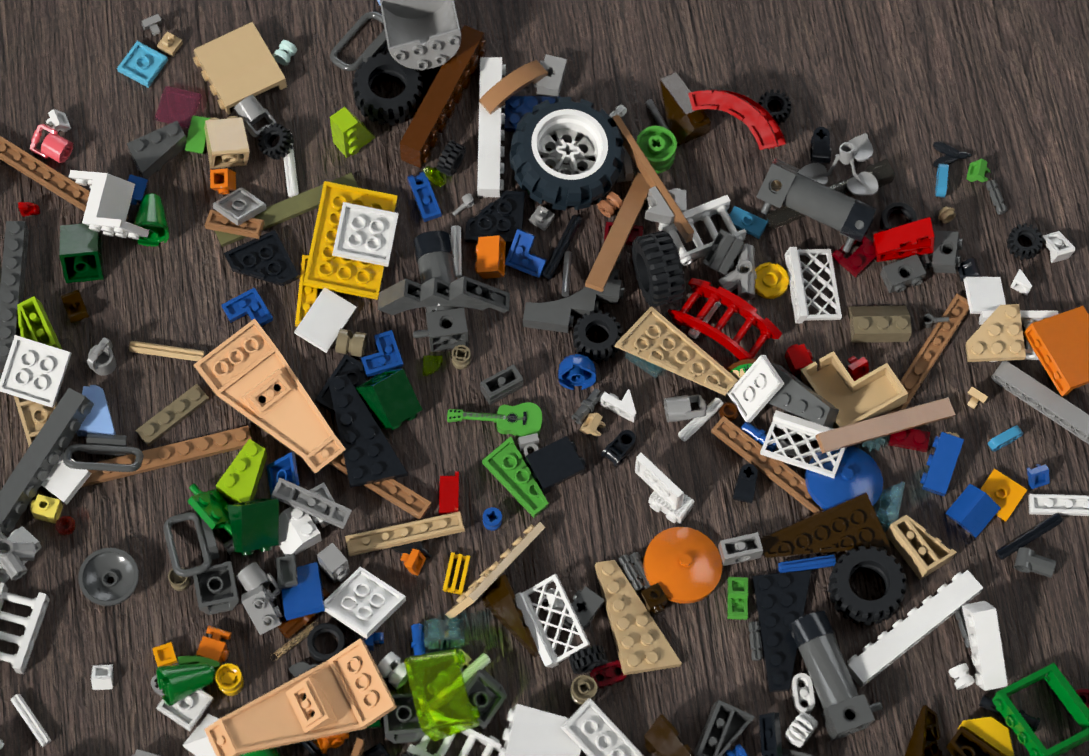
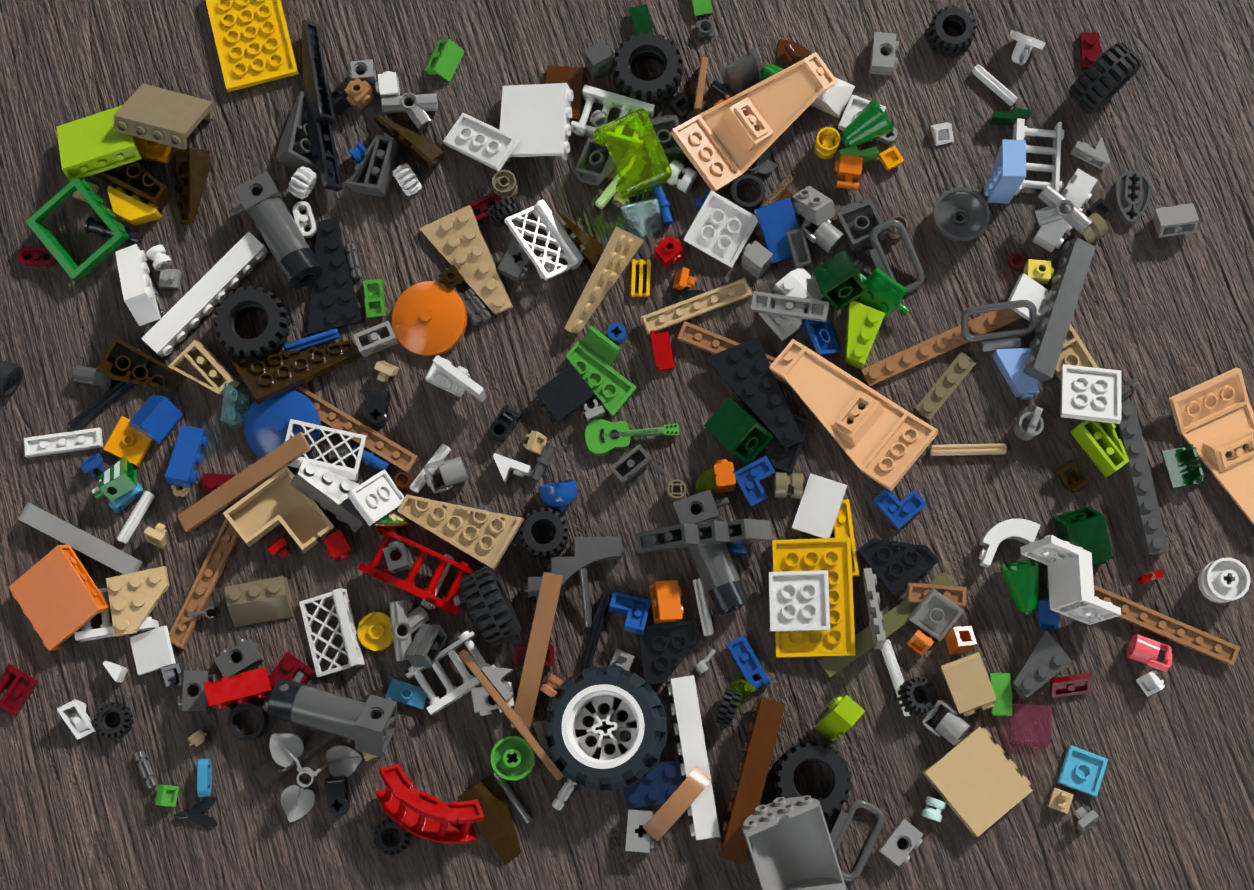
camera: 175 degrees right, 10 degrees up
(21, 677) = (1005, 119): none -> dark green slope
(53, 592) = (1007, 172): none -> light blue wedge
(124, 131) = (1070, 685): none -> dark red plate
(154, 269) = (1016, 529): none -> white arch
(260, 187) = (920, 642): none -> orange tile
(297, 213) = (875, 614): none -> light grey wing
(318, 40) = (889, 847): none -> light grey brick
(412, 357) = (723, 476): none -> orange brick
(422, 591) = (668, 251): none -> red brick
(470, 744) = (598, 118): none -> light grey plate
(511, 508) = (601, 346): none -> bright green panel
(688, 714) = (407, 179): none -> white gear
(733, 520) = (385, 370): none -> tan tile
(745, 317) = (401, 564): none -> dark grey brick
(951, 655) = (169, 278): none -> light grey tile
(995, 566) = (133, 366): none -> dark brown wedge
(997, 420) = (135, 517): none -> white axle
(1012, 451) = (116, 480): none -> green torso

